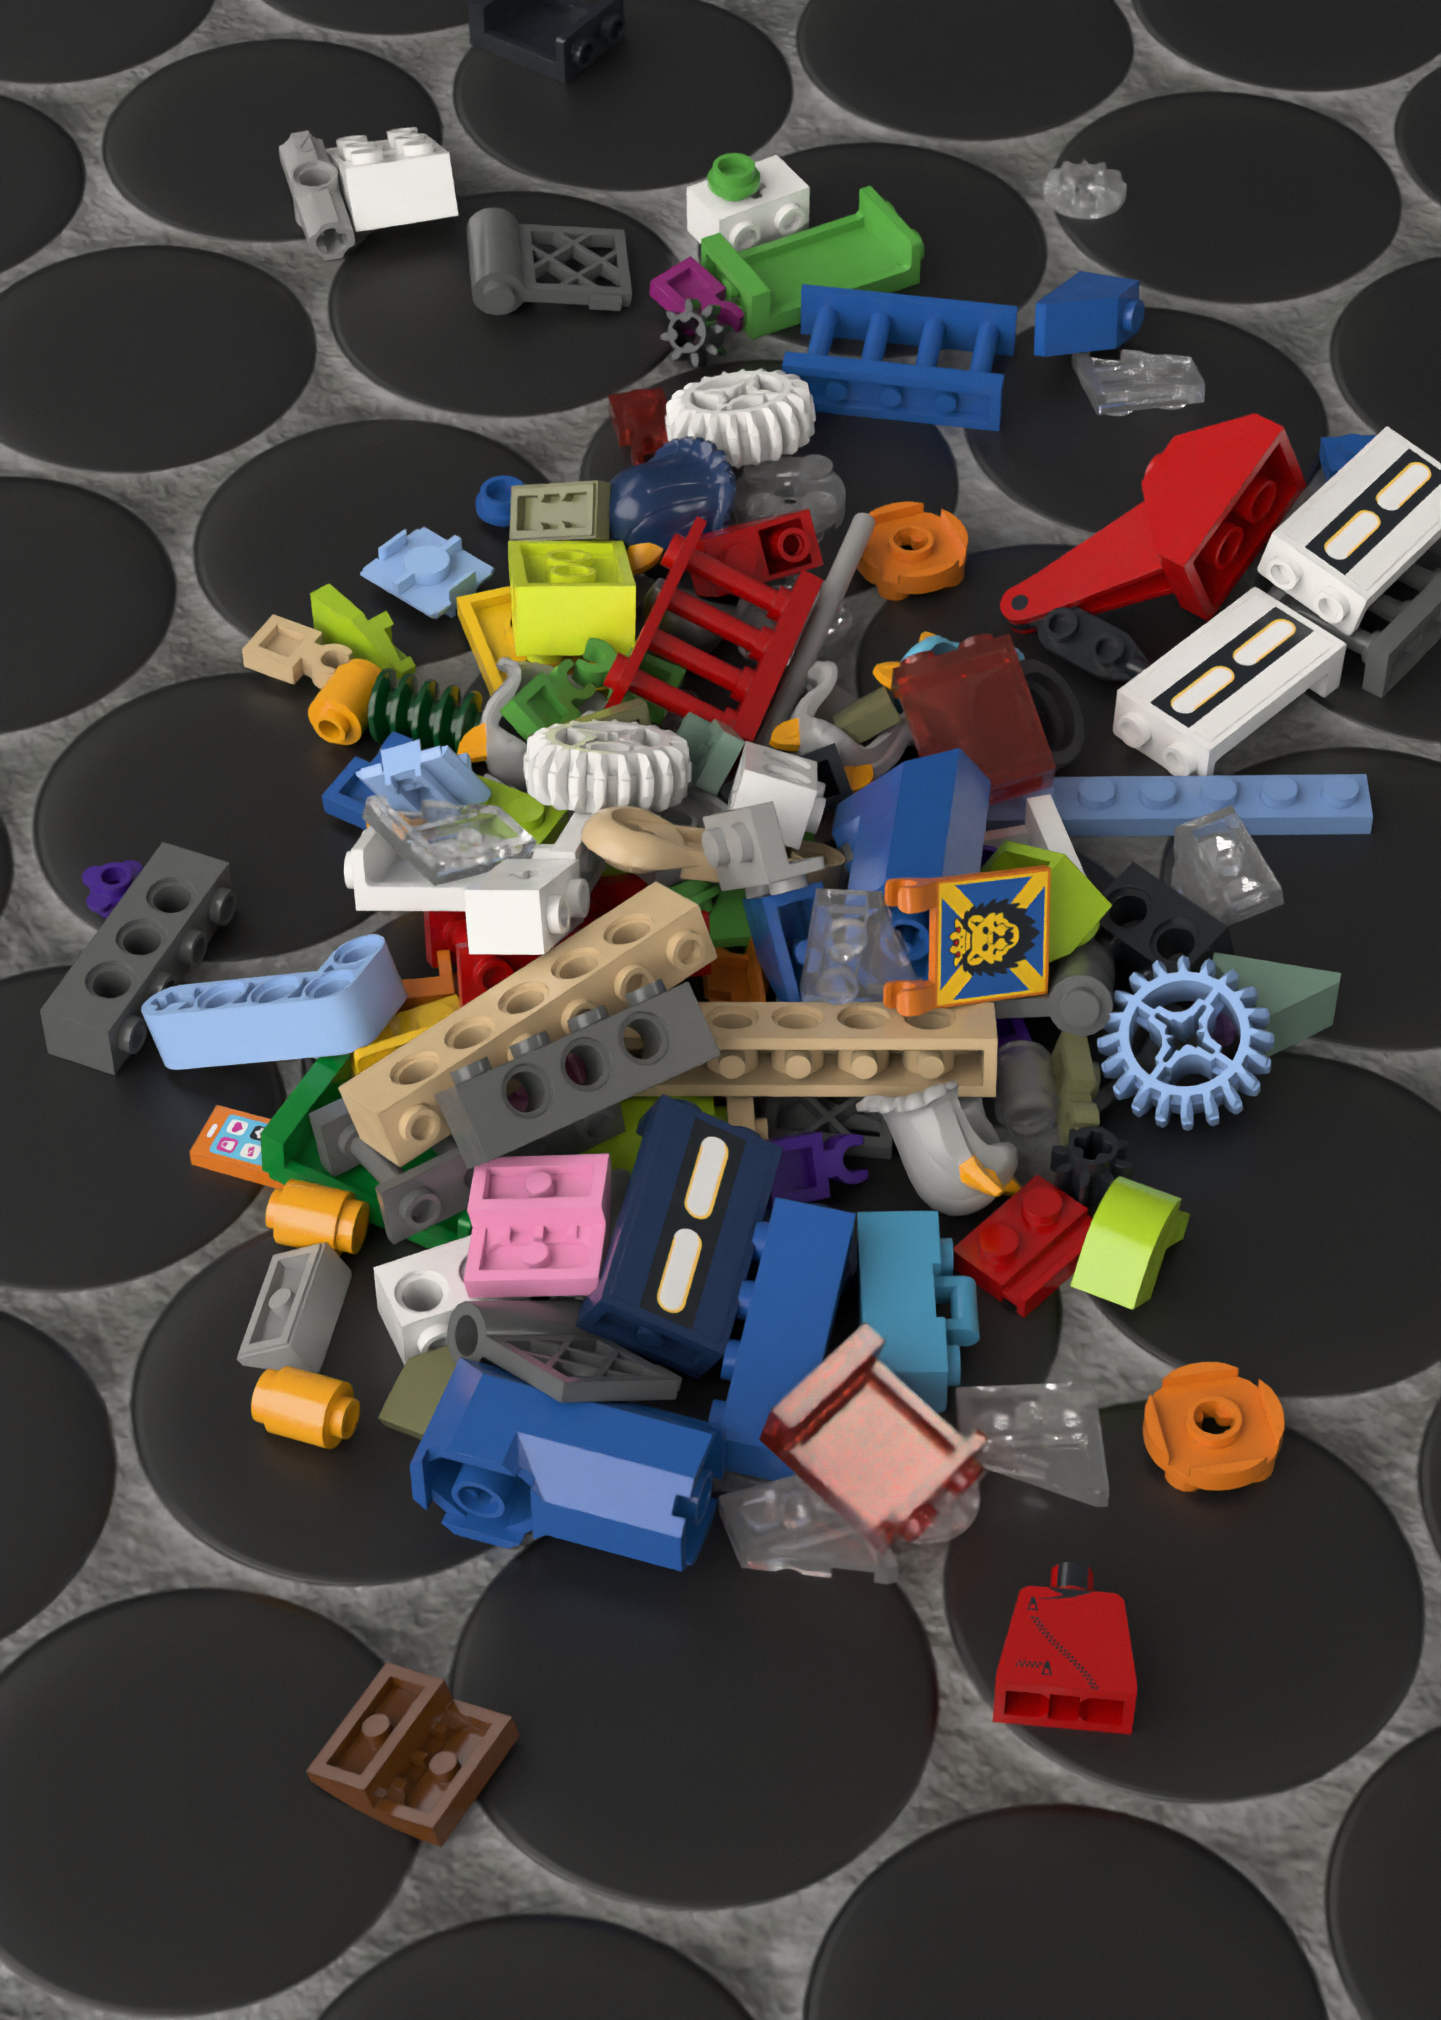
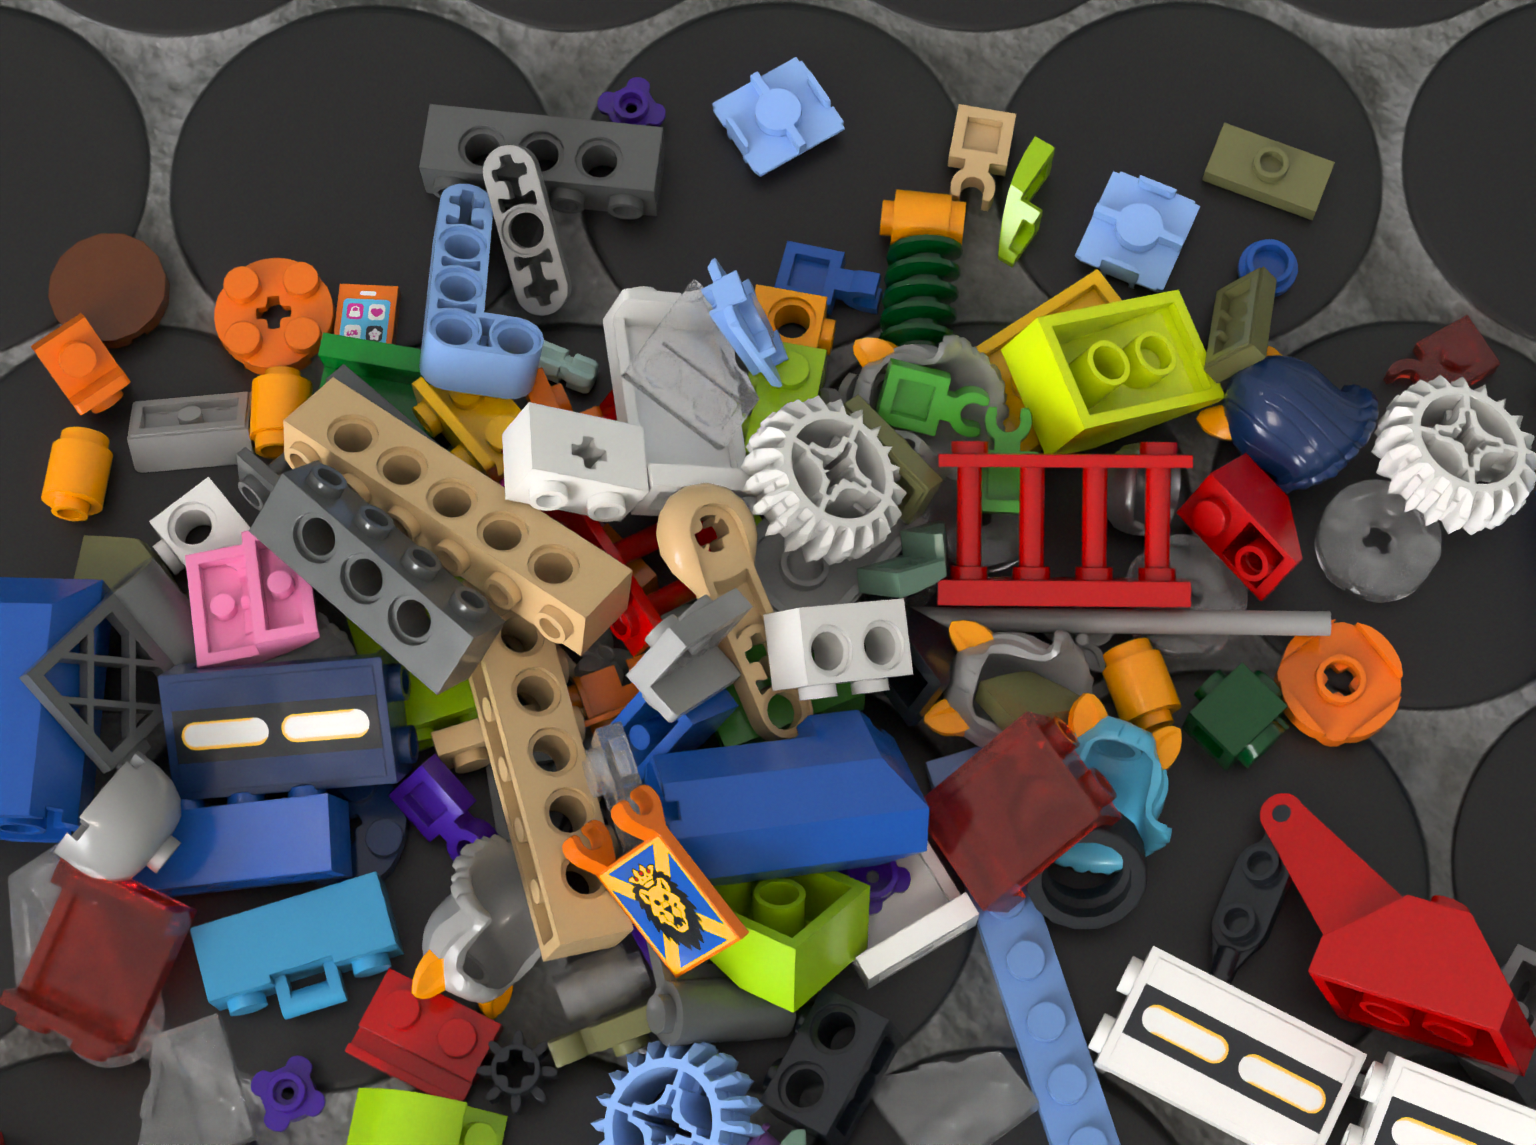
camera: 75 degrees right, 25 degrees up
(96, 1351) = (113, 284): none -> reddish brown tile
(179, 938) = (501, 190): none -> light grey beam
(182, 783) = (778, 116): none -> light blue piece
(184, 1377) = (82, 366): none -> orange bracket
(190, 1185) = (255, 289): none -> orange plate
(408, 483) = (1268, 171): none -> olive plate
(744, 1356) = (126, 824): none -> light grey cylinder
(858, 657) = (1140, 685): none -> light orange brick
(919, 603) = (1237, 716): none -> dark green brick
(1045, 1369) = (306, 1098): none -> dark purple plate

